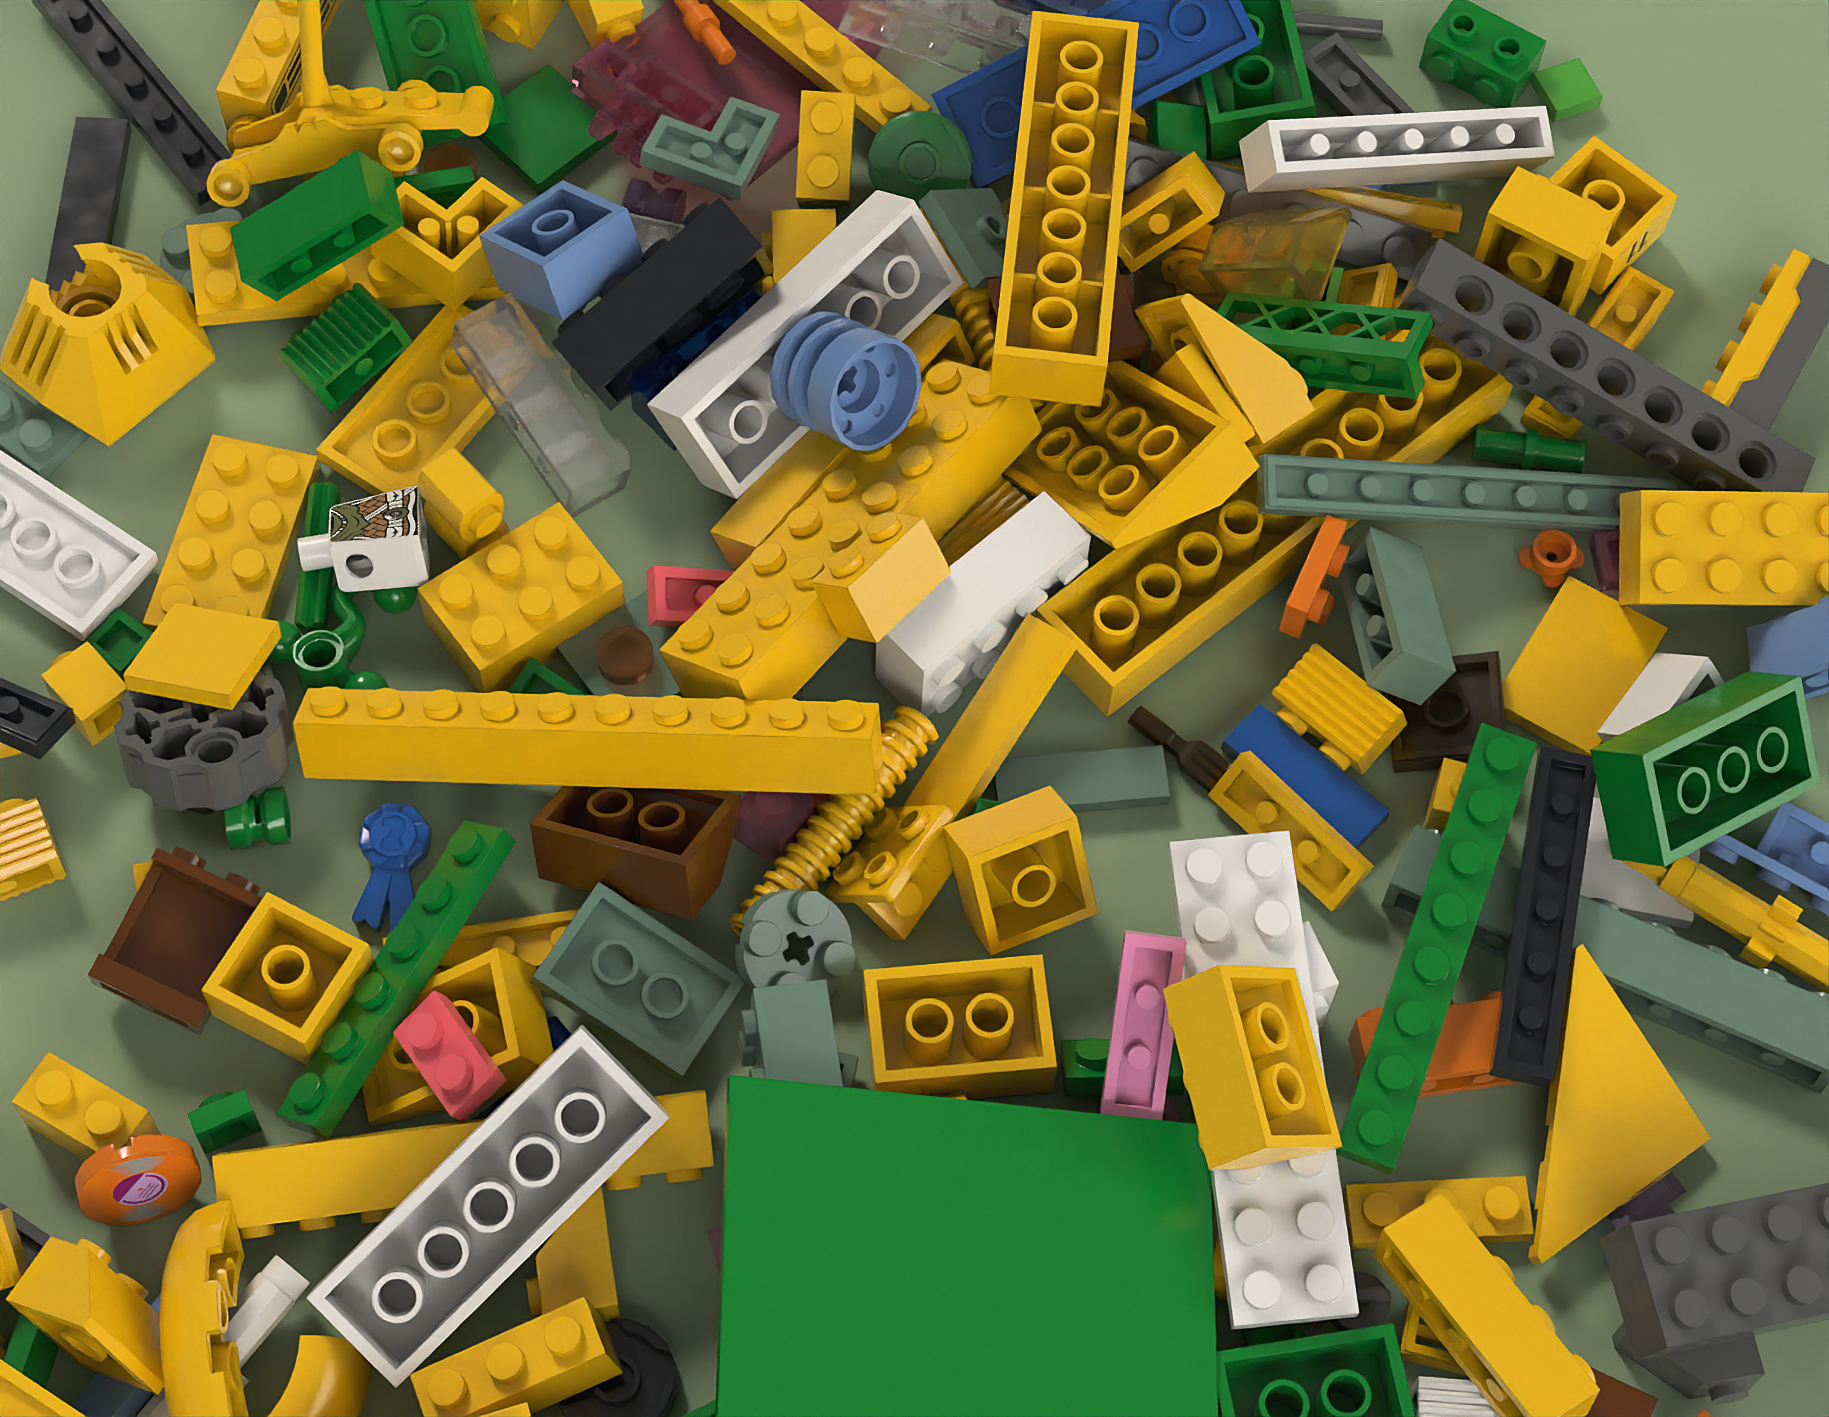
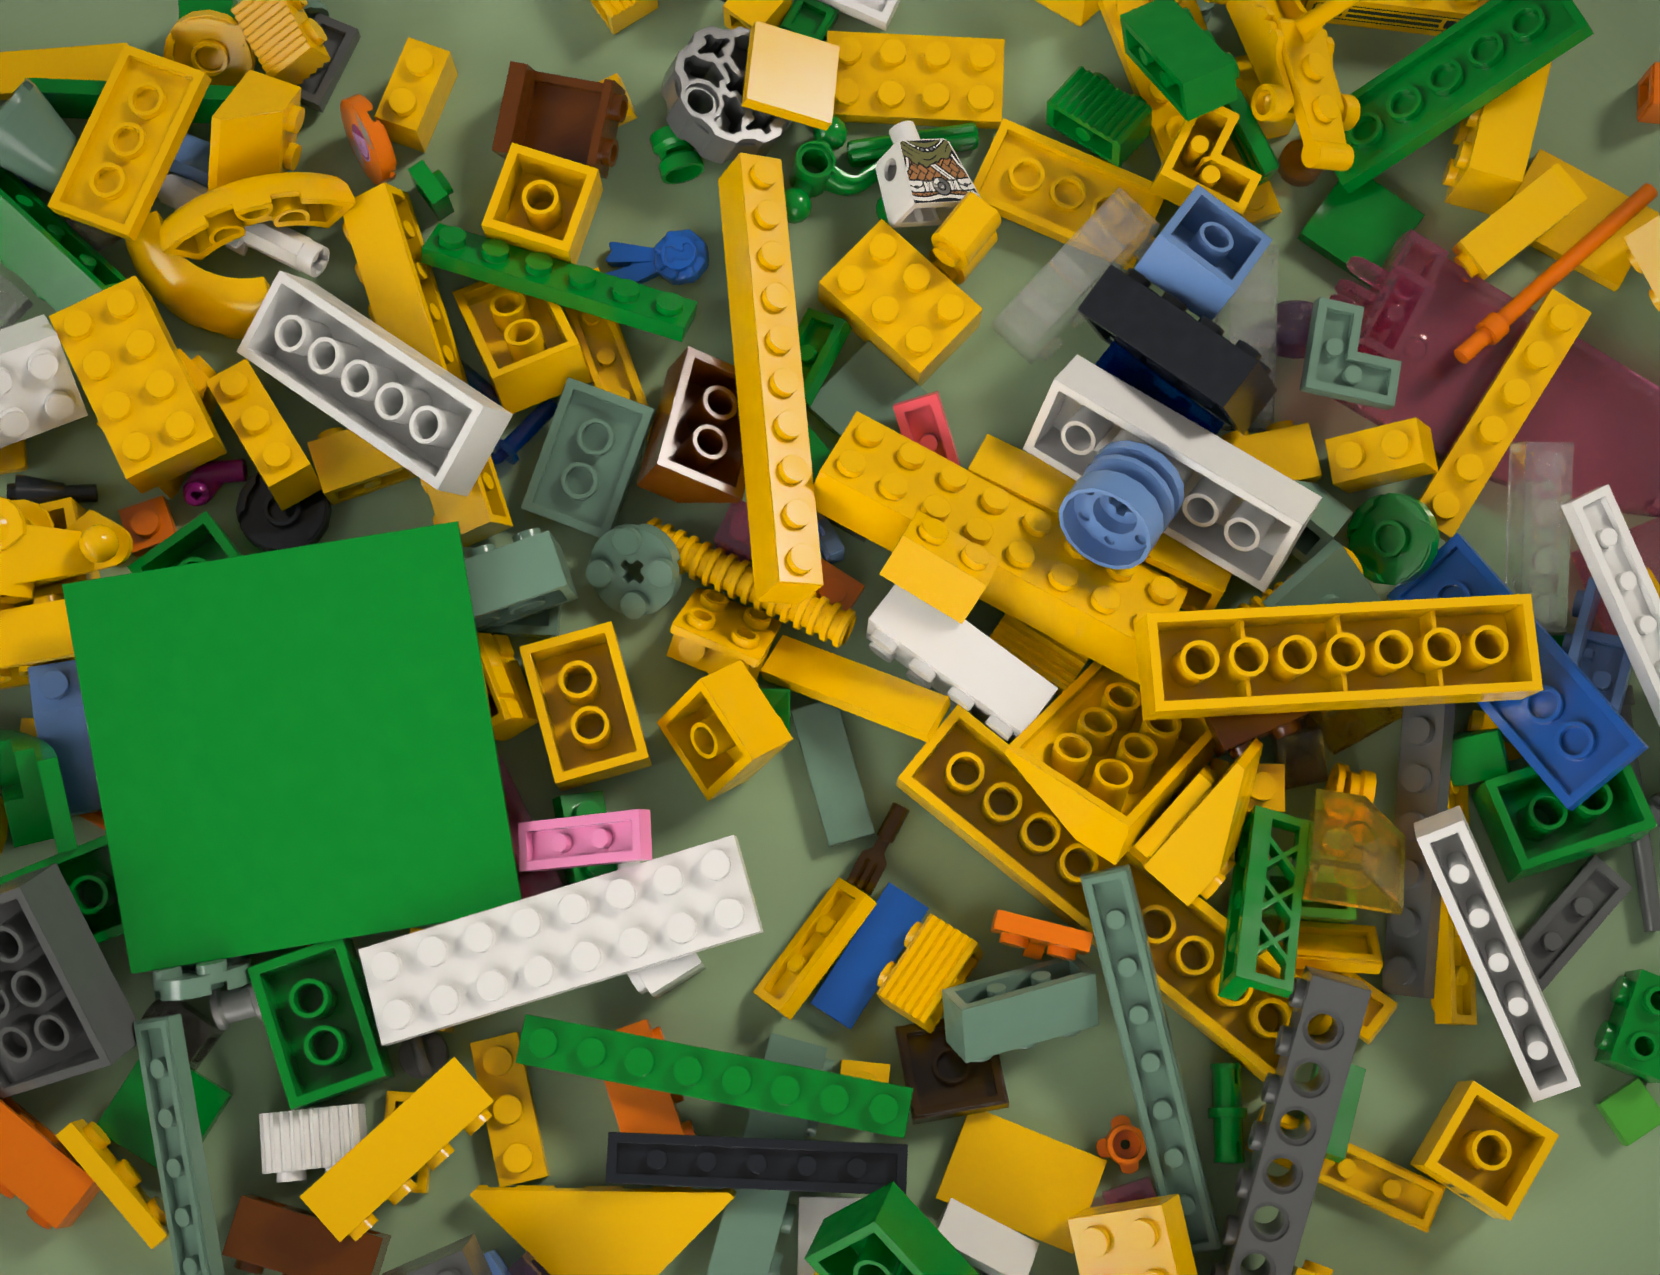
camera: 80 degrees right, 15 degrees up
(449, 1056) = (491, 330): coral plate -> none
(625, 655) = (867, 392): clear orange tile -> none
(1167, 210) = (1377, 753): yellow brick -> none
(1251, 1066) = (543, 927): yellow slope -> none
(1545, 238) = (1410, 1092): yellow brick -> none

